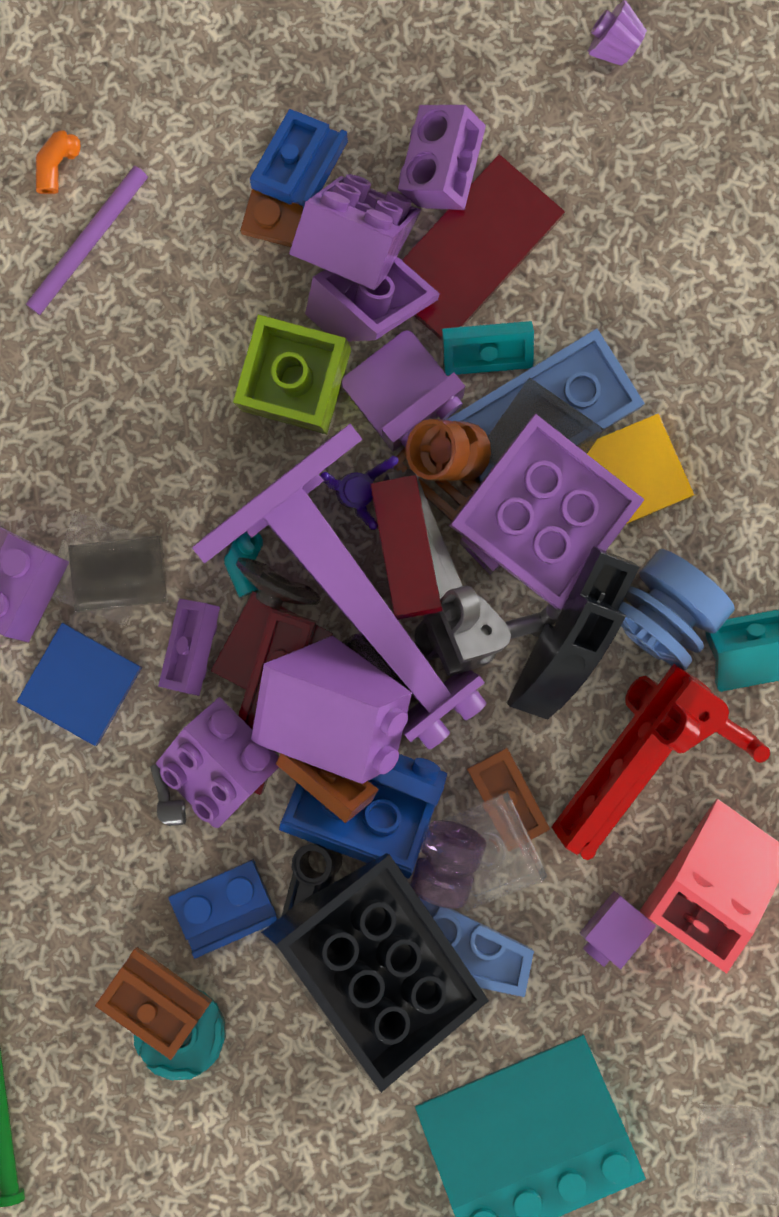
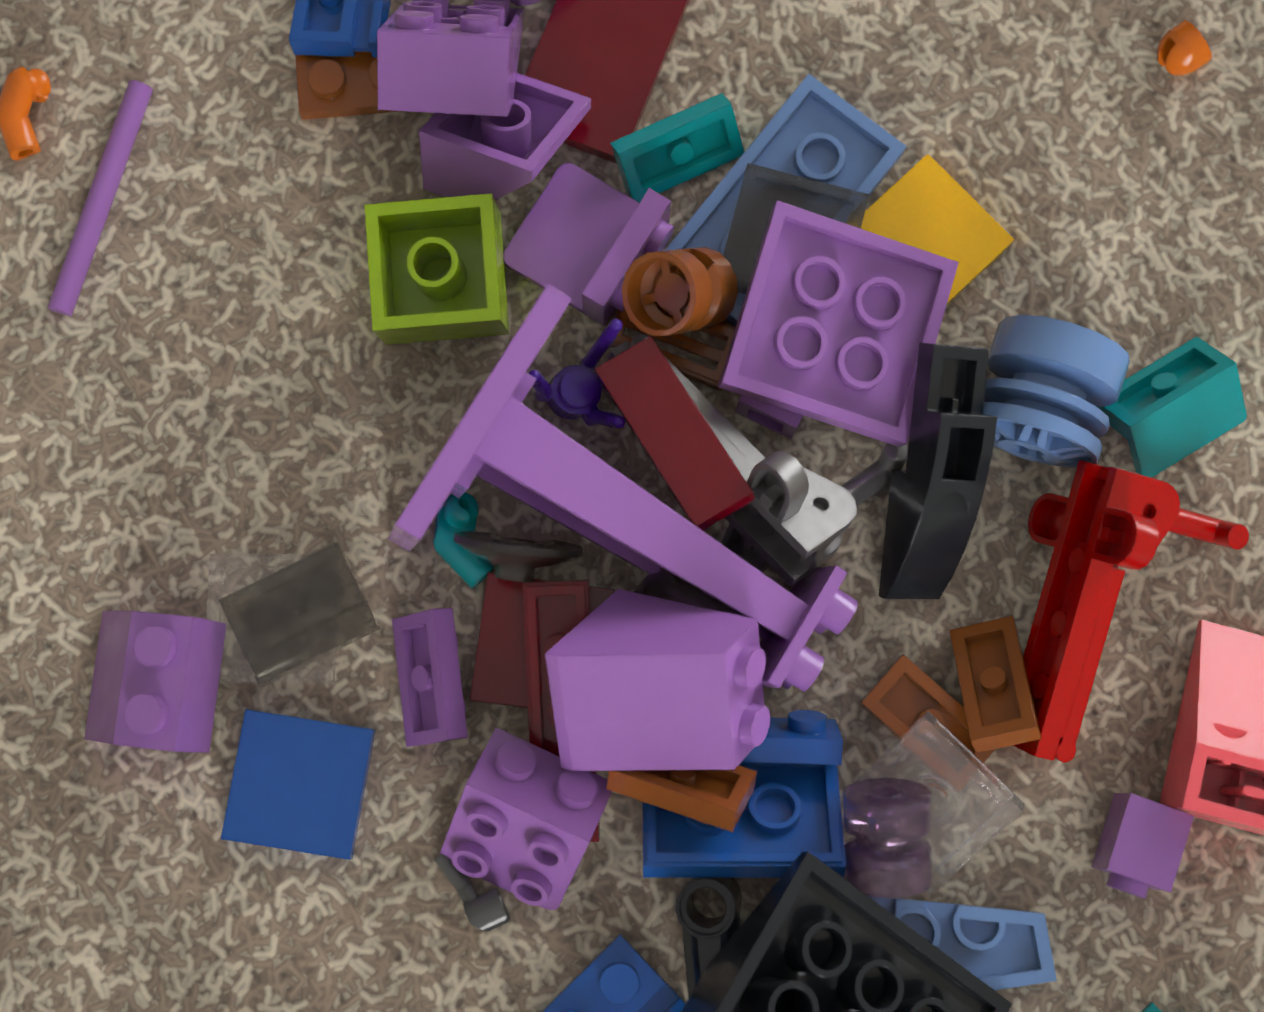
camera: 25 degrees left, 5 degrees down
(559, 790) = (994, 684): none -> dark orange plate

